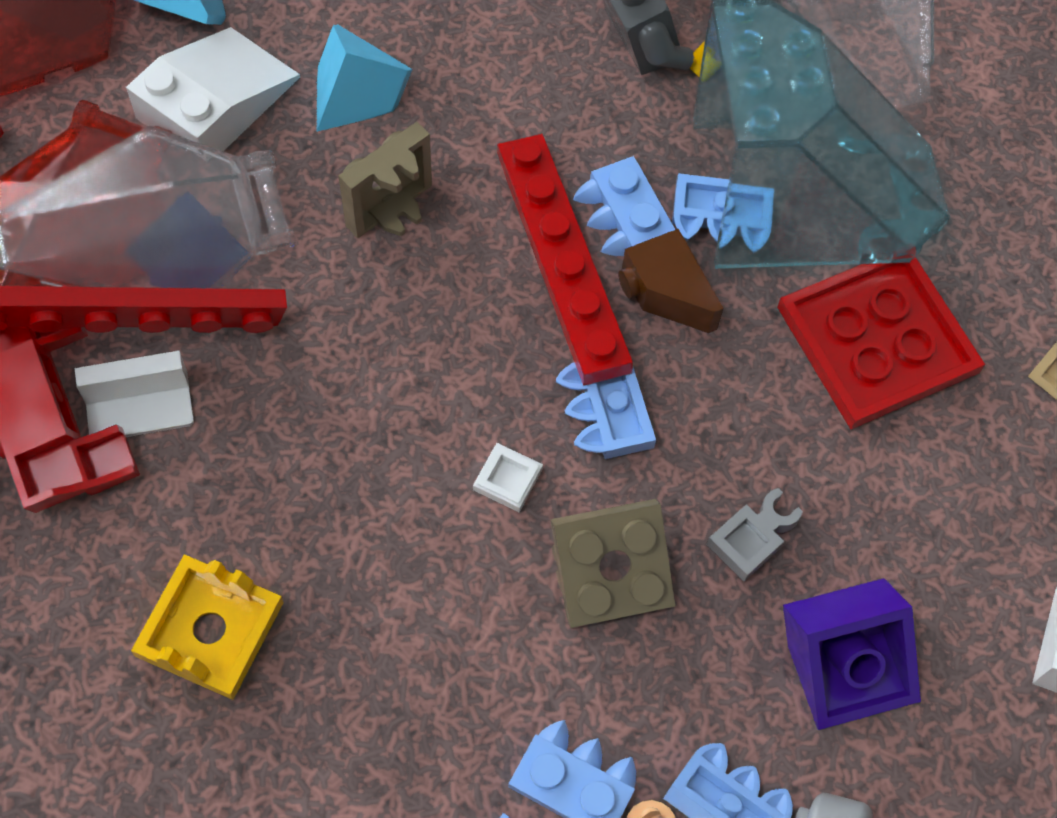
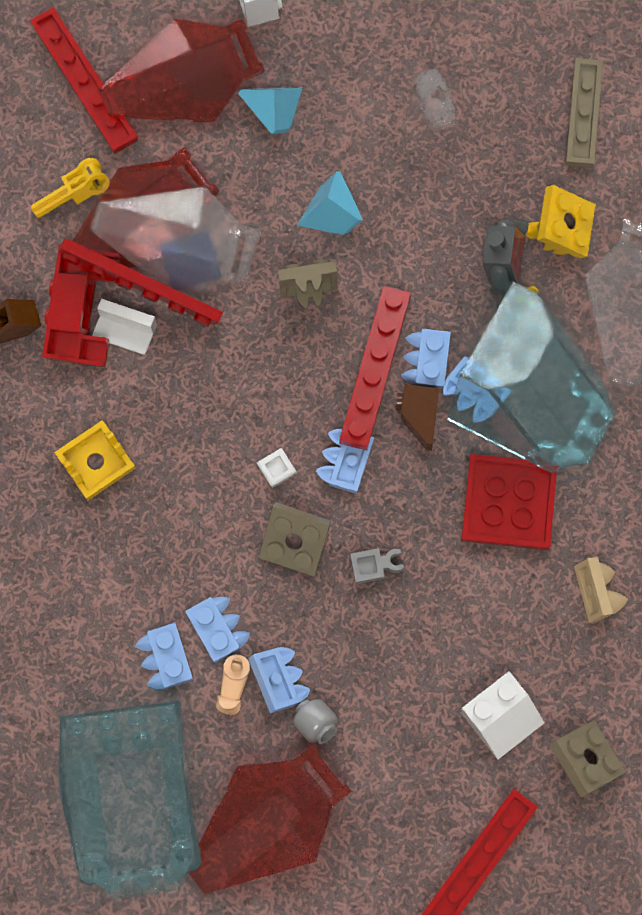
camera: 40 degrees right, 10 degrees up
(210, 88) = (255, 173): white slope -> none
(854, 652) = (380, 647): dark purple slope -> none

